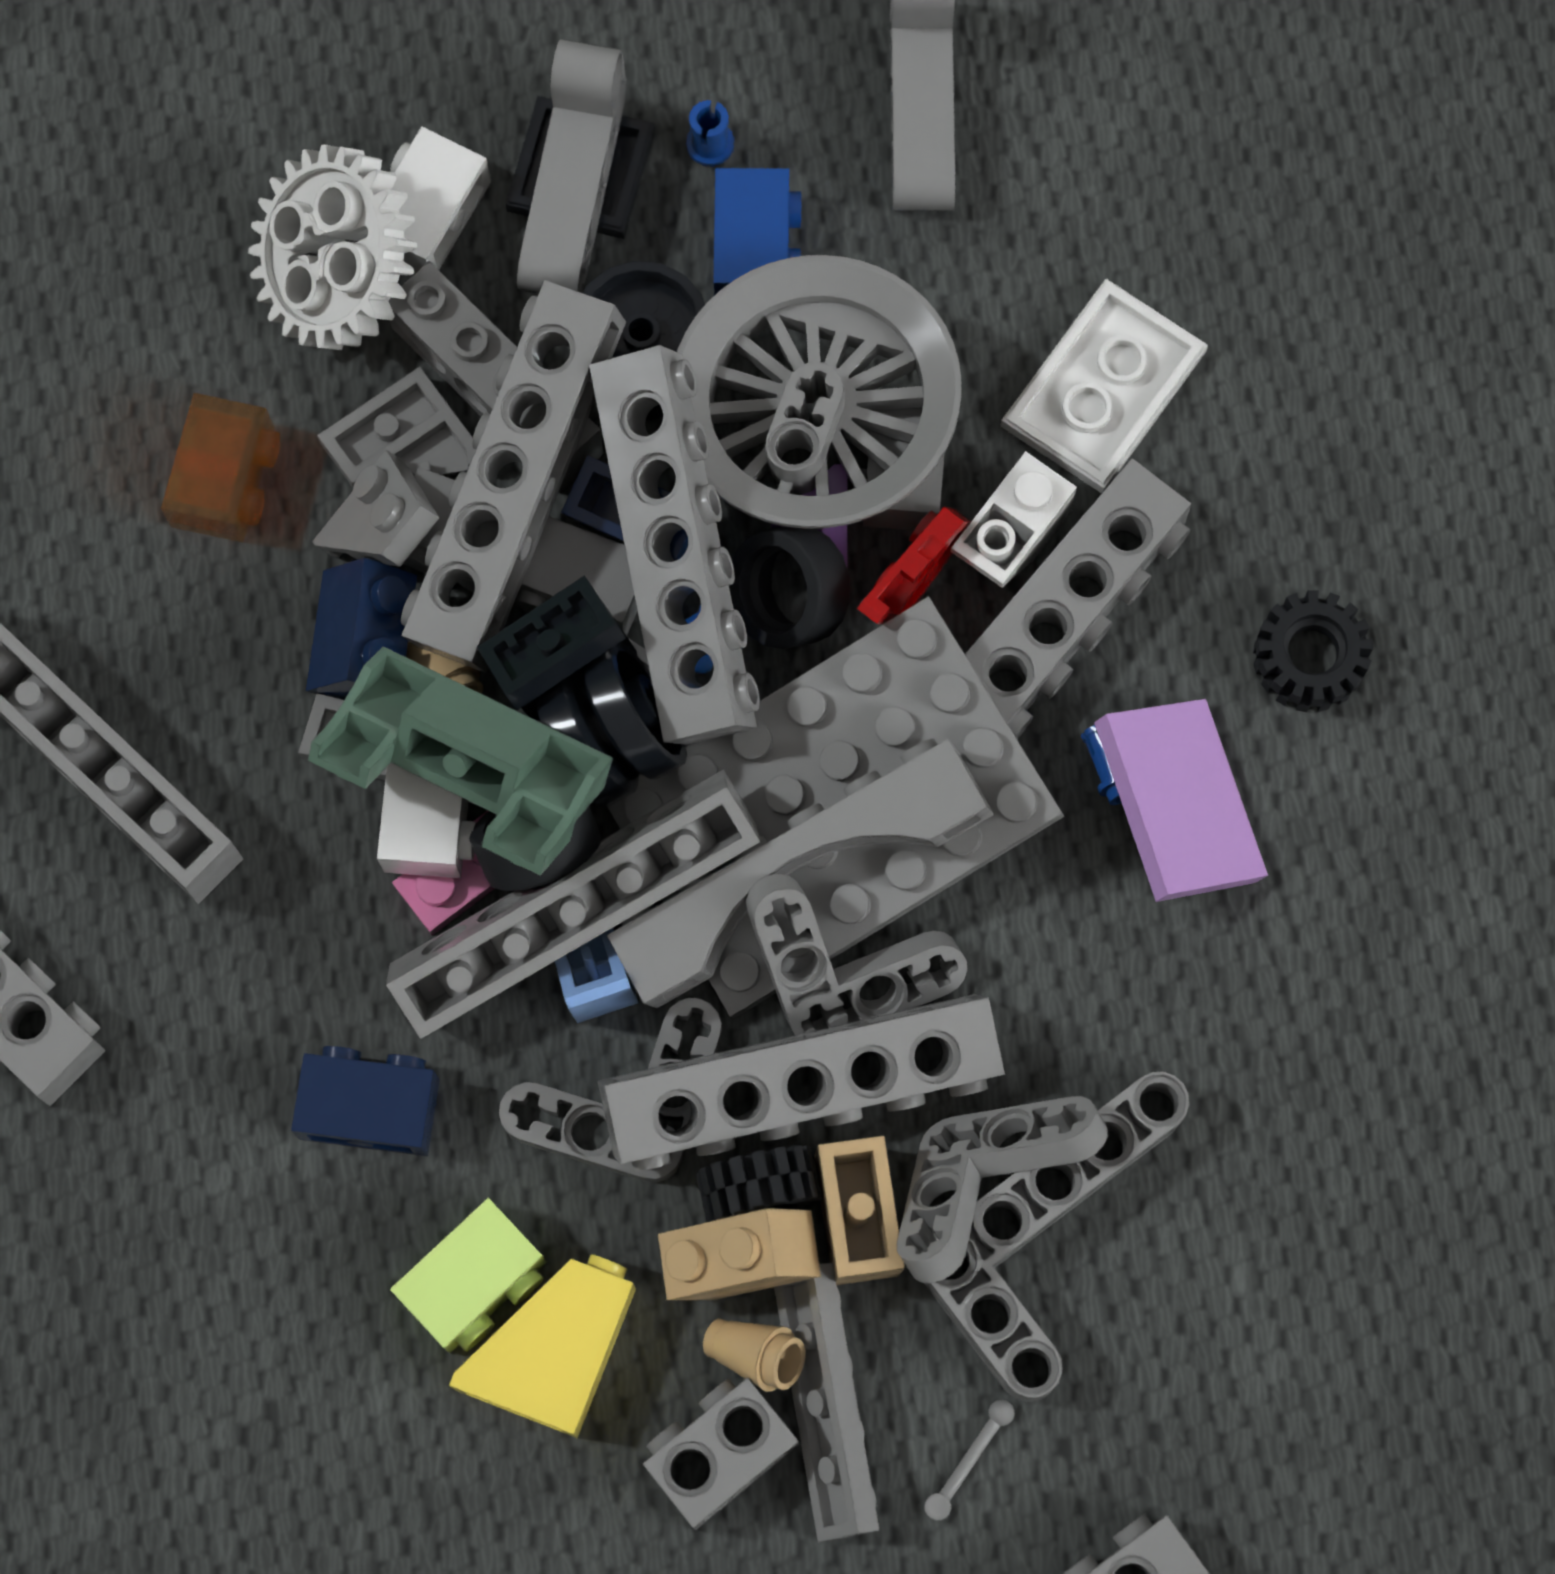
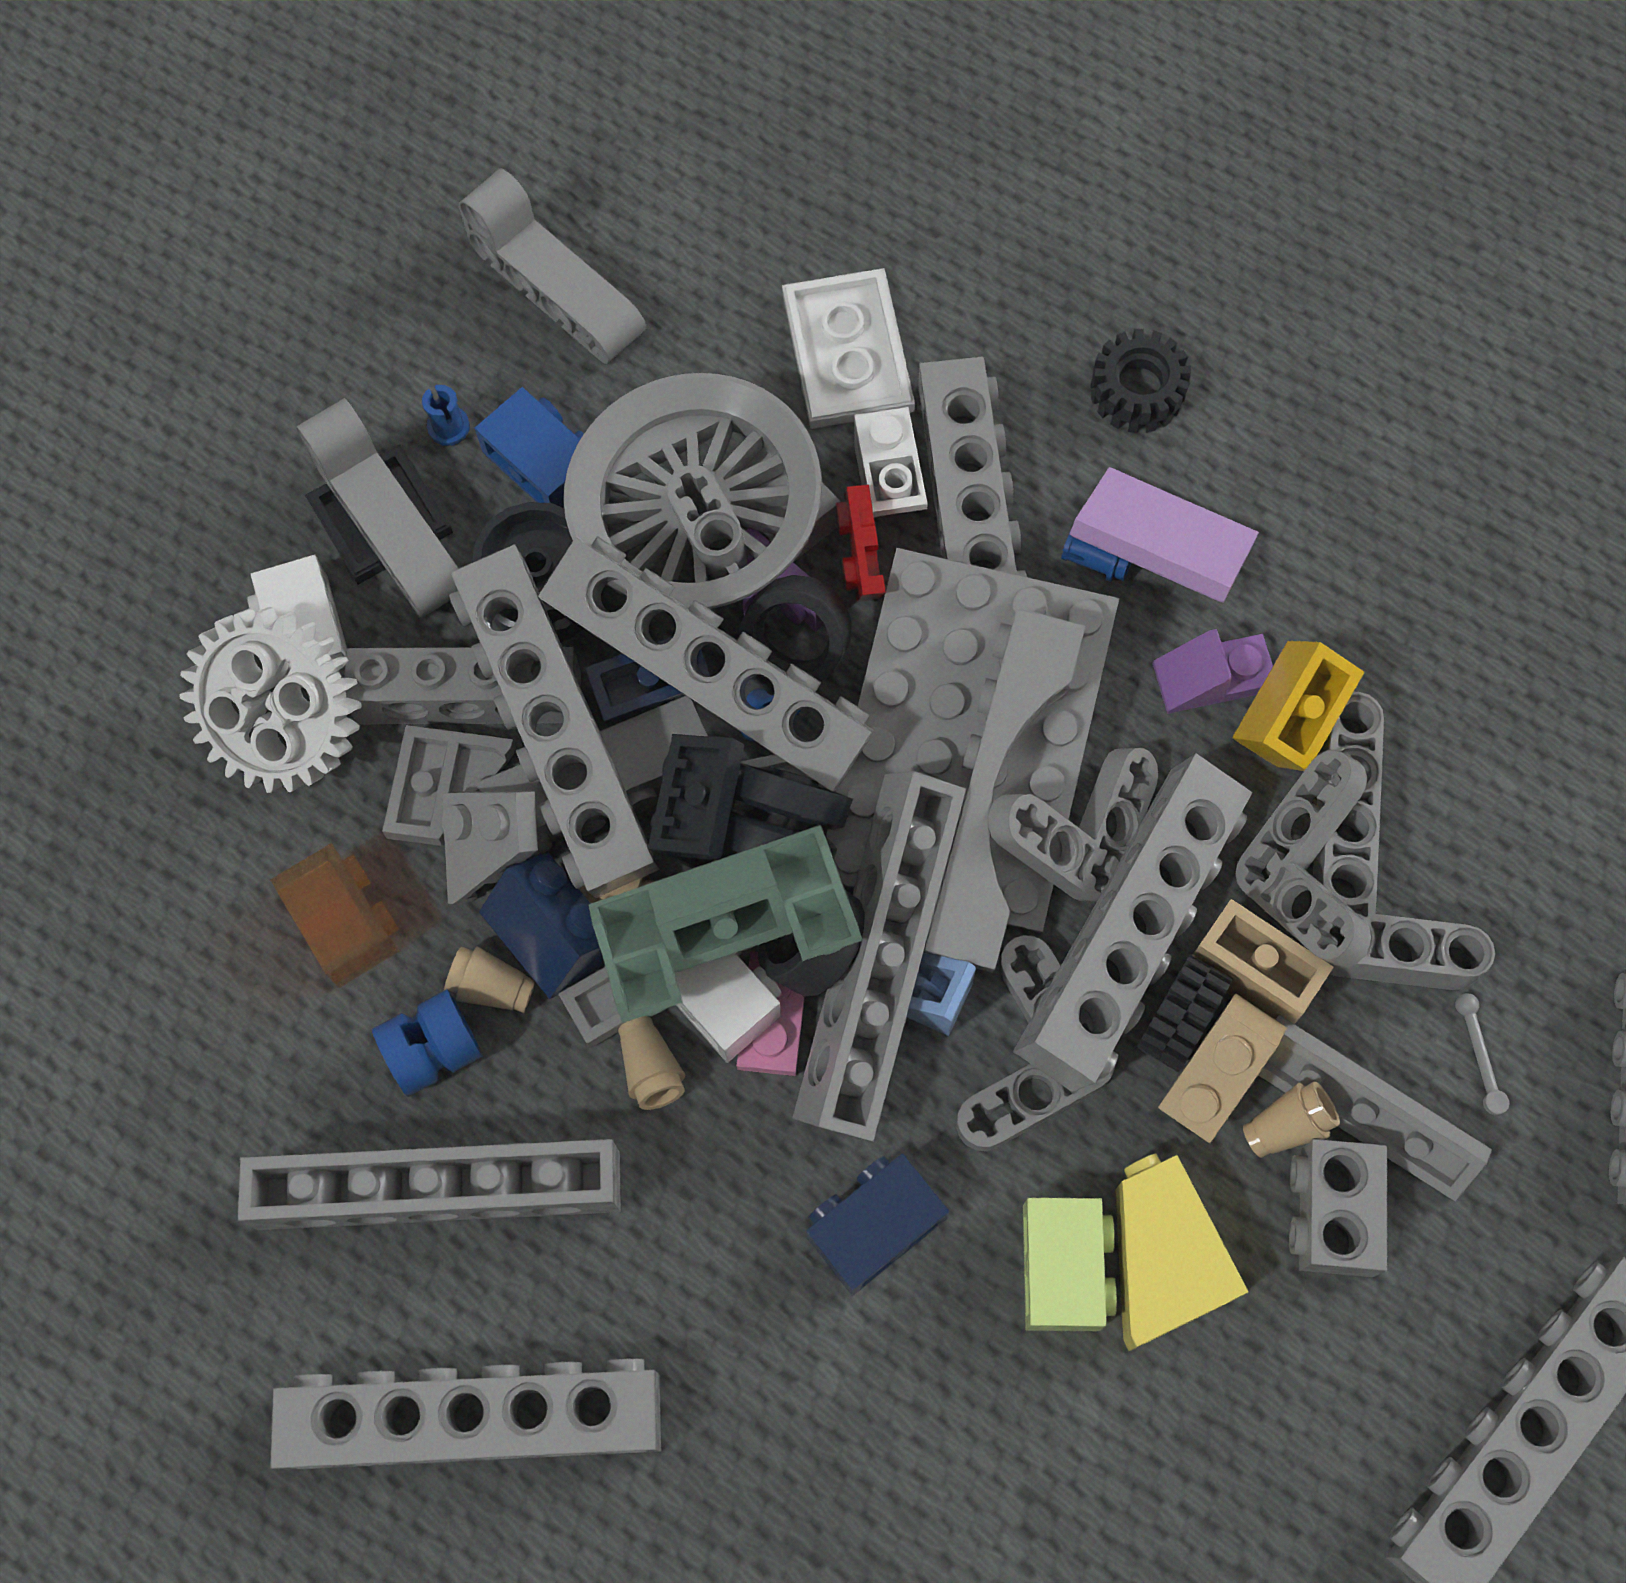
camera: 45 degrees left, 5 degrees down
(191, 635) = (426, 1043): none -> blue wheel
(278, 631) = (488, 981): none -> tan cone
(327, 820) = (649, 1065): none -> tan cone
(1099, 953) = (1212, 671): none -> medium lavender slope
(1121, 1043) = (1298, 704): none -> yellow brick

